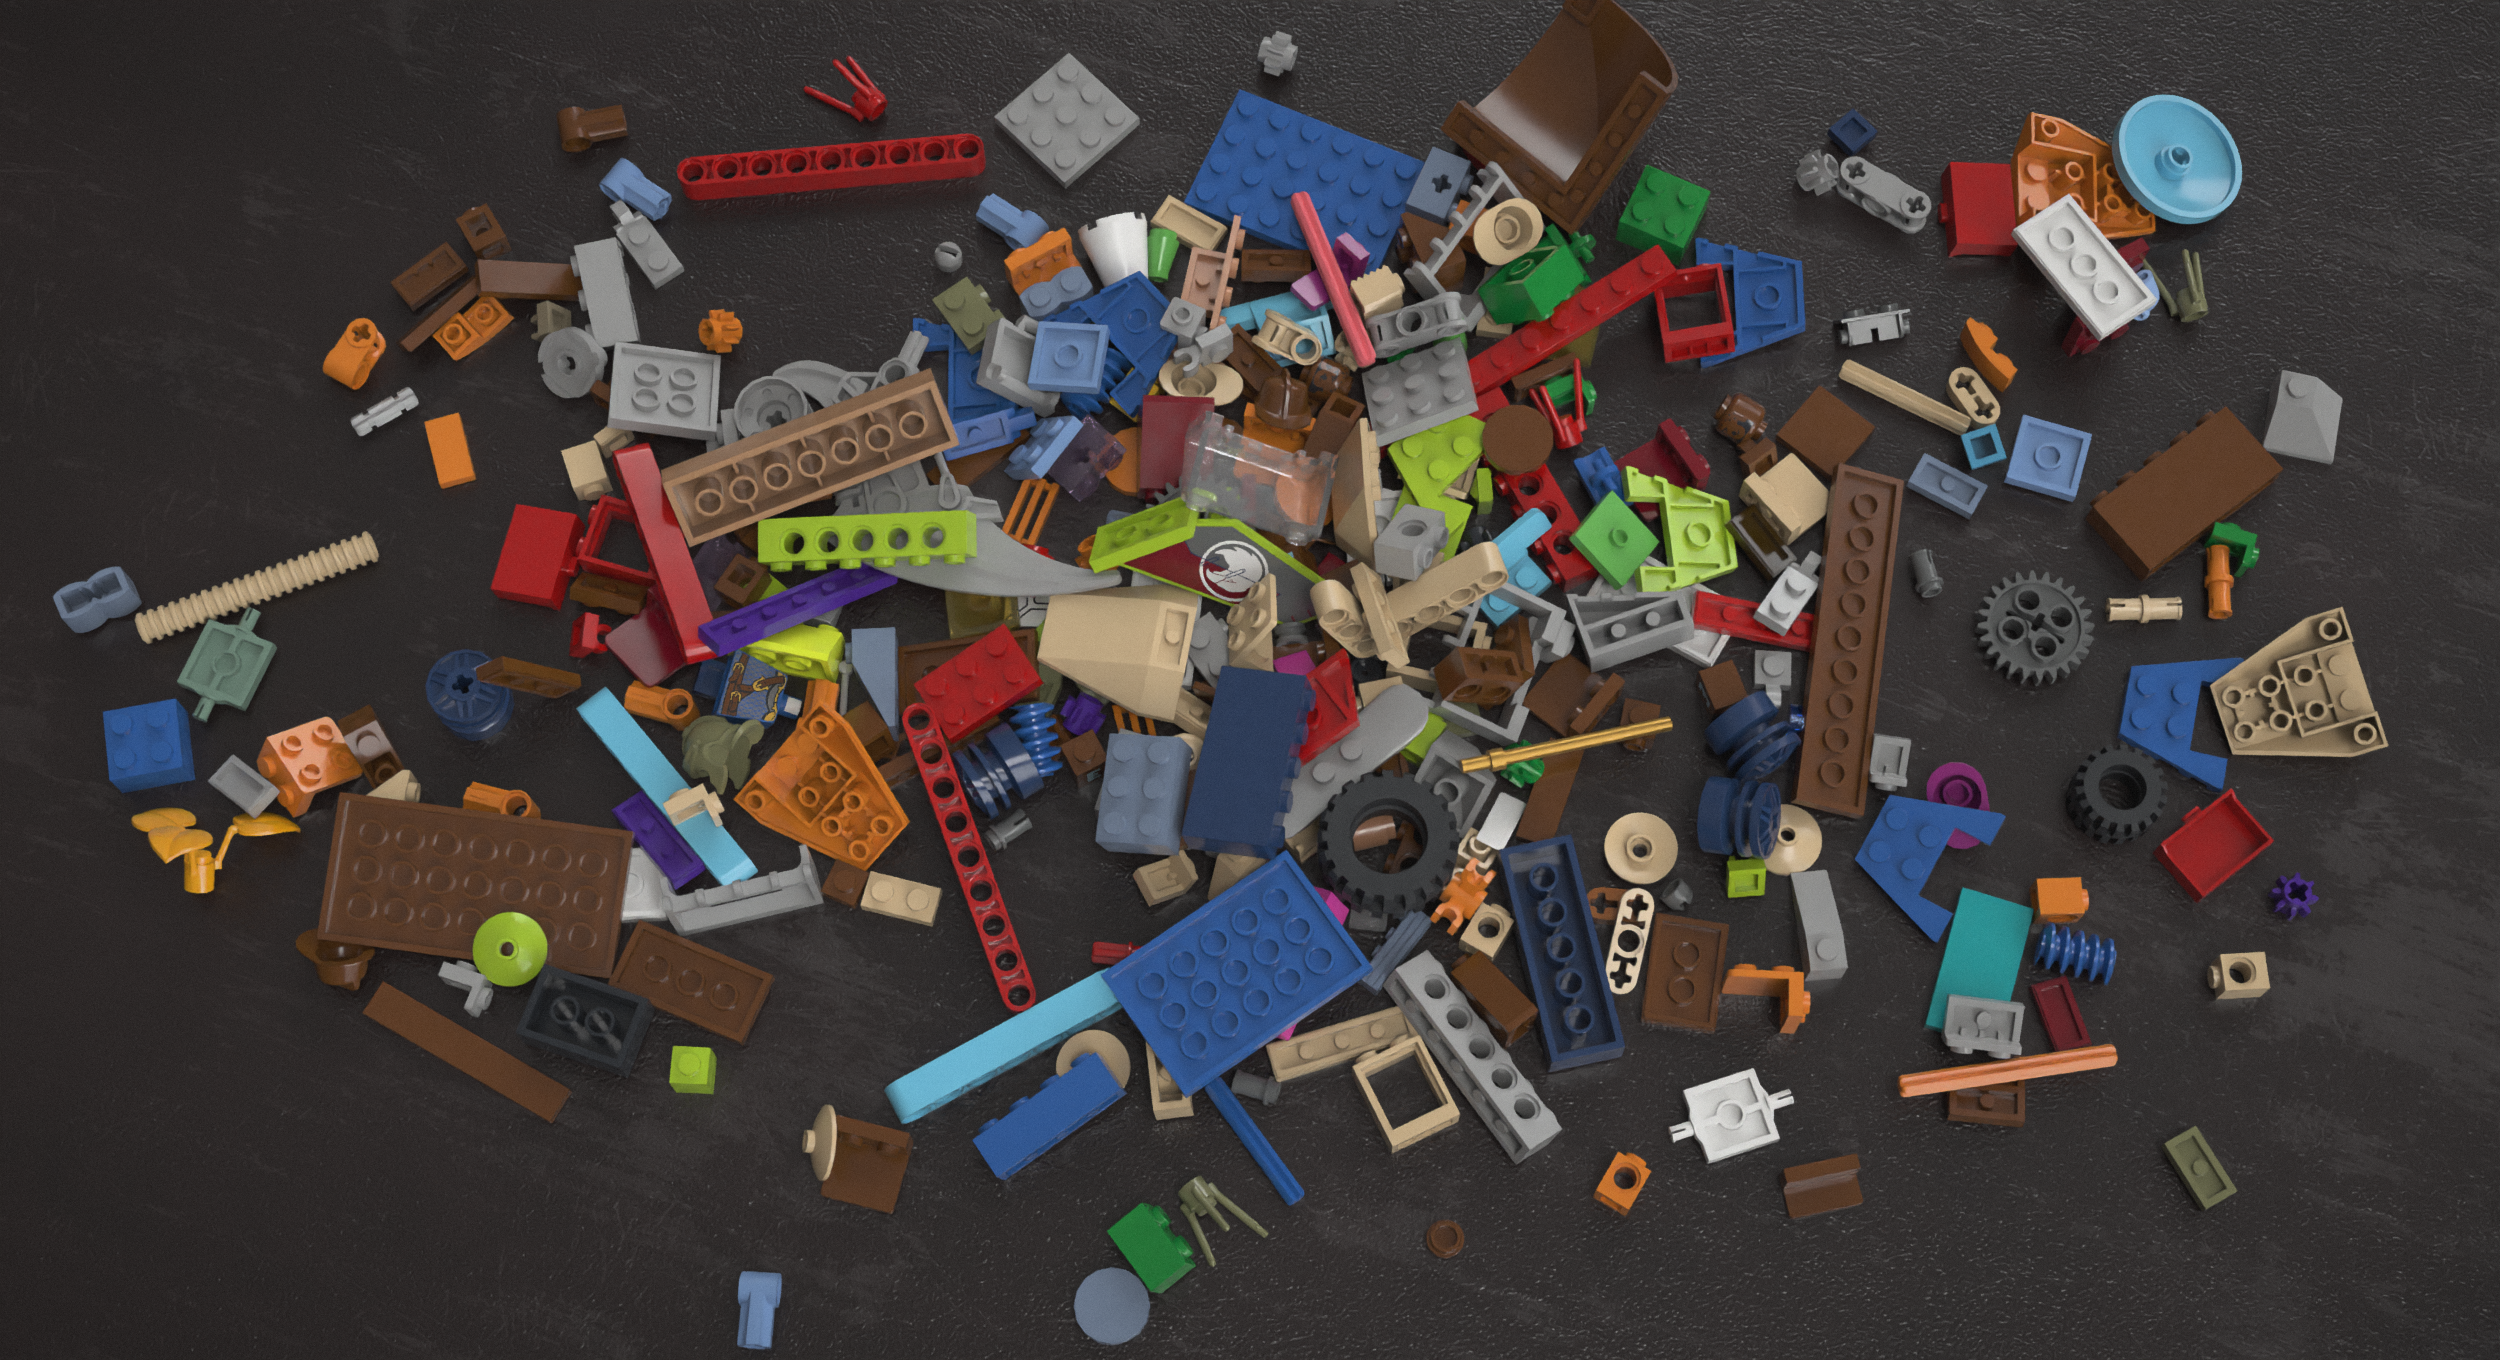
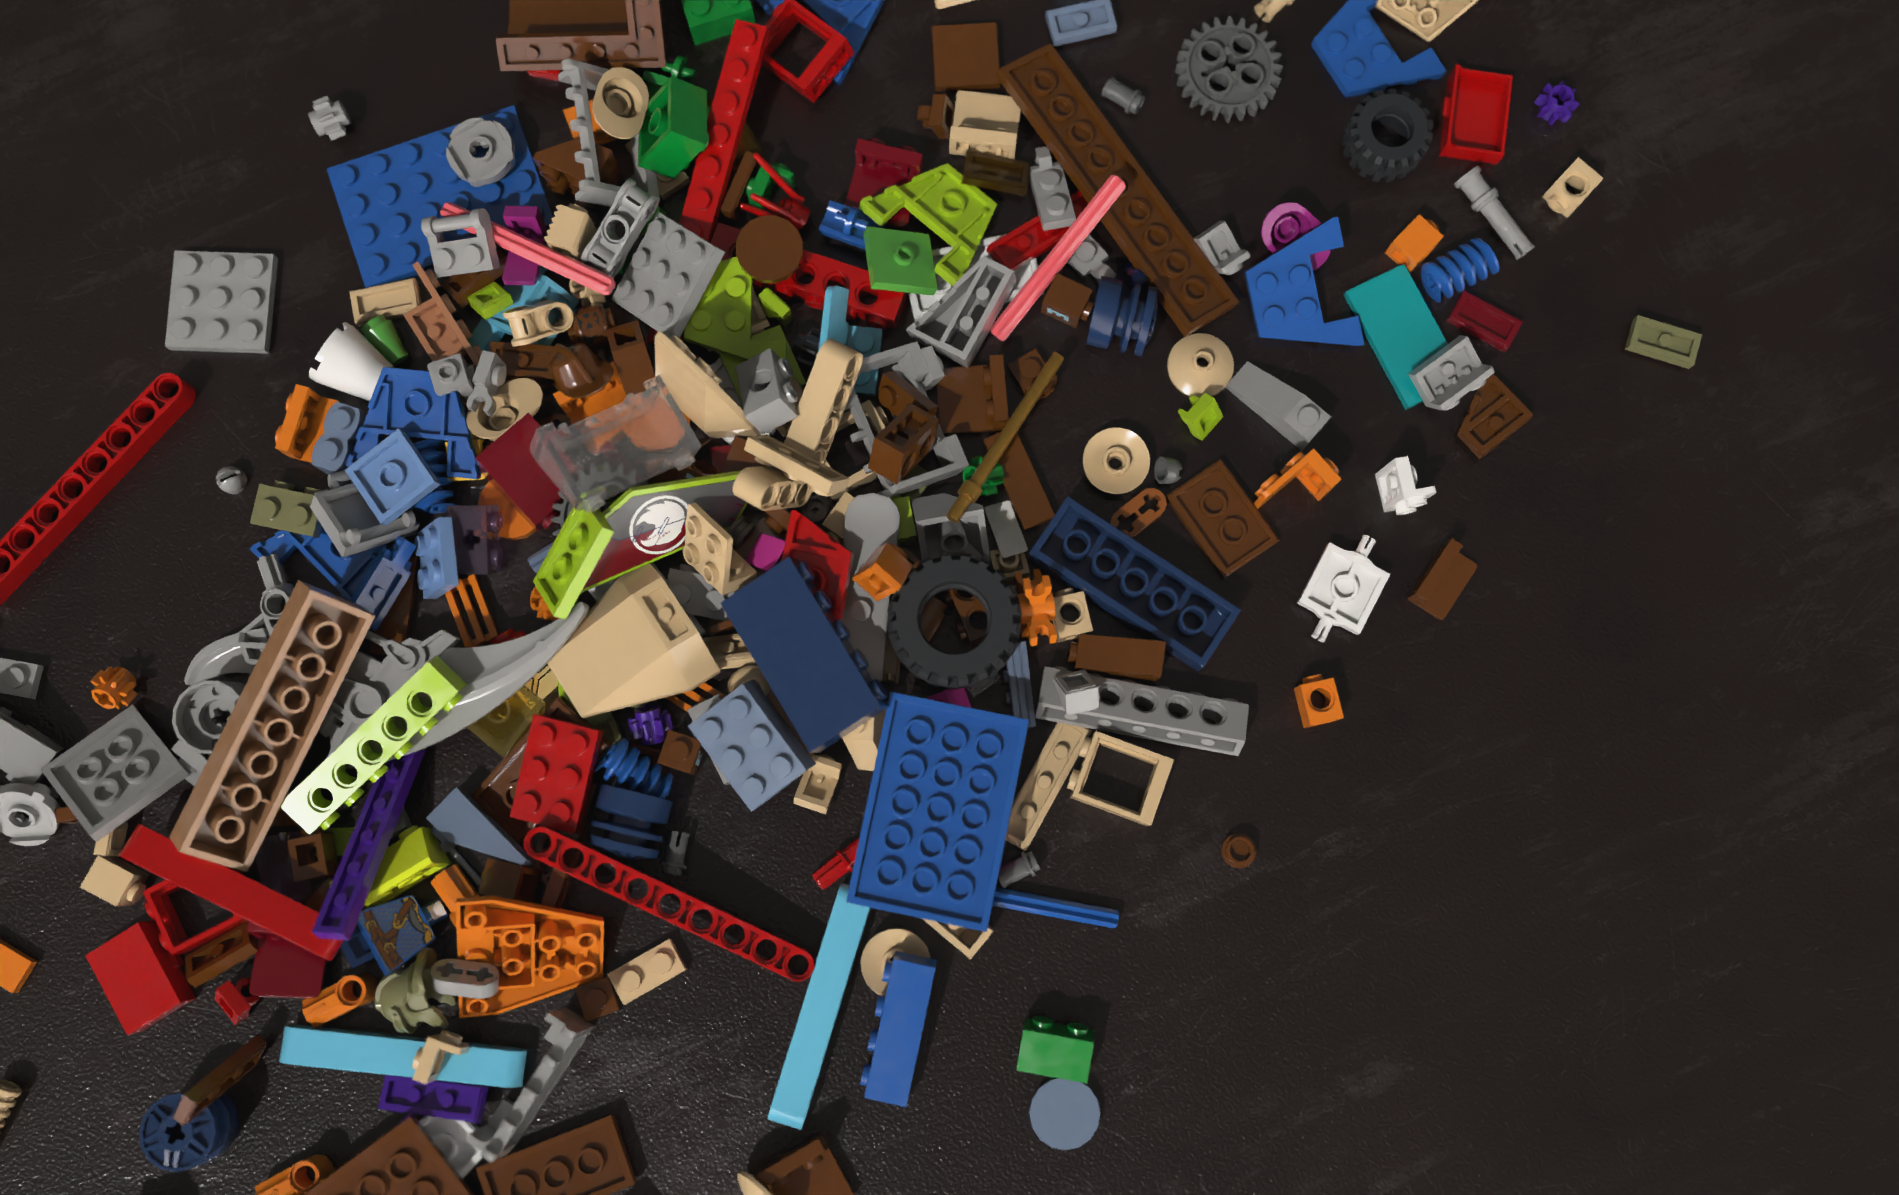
camera: 45 degrees left, 10 degrees up
(767, 771) = (464, 978): none -> light grey beam
(867, 99) = (55, 416): red plant -> none
(1017, 227) = (262, 413): medium blue piece -> none
(1199, 1198) = (1053, 982): olive plant -> none
(1268, 293) = (490, 300): none -> lime tile
(1278, 240) = (461, 255): none -> light grey plate
(1368, 754) = (883, 571): none -> orange slope
(1371, 194) = (483, 170): none -> light grey plate
(1432, 989) = (1077, 692): none -> light grey slope
(1444, 173) = (529, 103): sand blue brick -> none
(1646, 916) = (1166, 506): tan beam -> none
(1739, 817) = (1166, 379): dark blue wheel -> none
(1740, 418) = (901, 97): reddish brown head -> none
(1744, 648) = (1058, 257): none -> coral axle
(1847, 1085) = (1397, 487): none -> white bracket
(2007, 1070) = (1490, 390): orange axle -> none
(2153, 920) = (1485, 200): none -> light grey pin

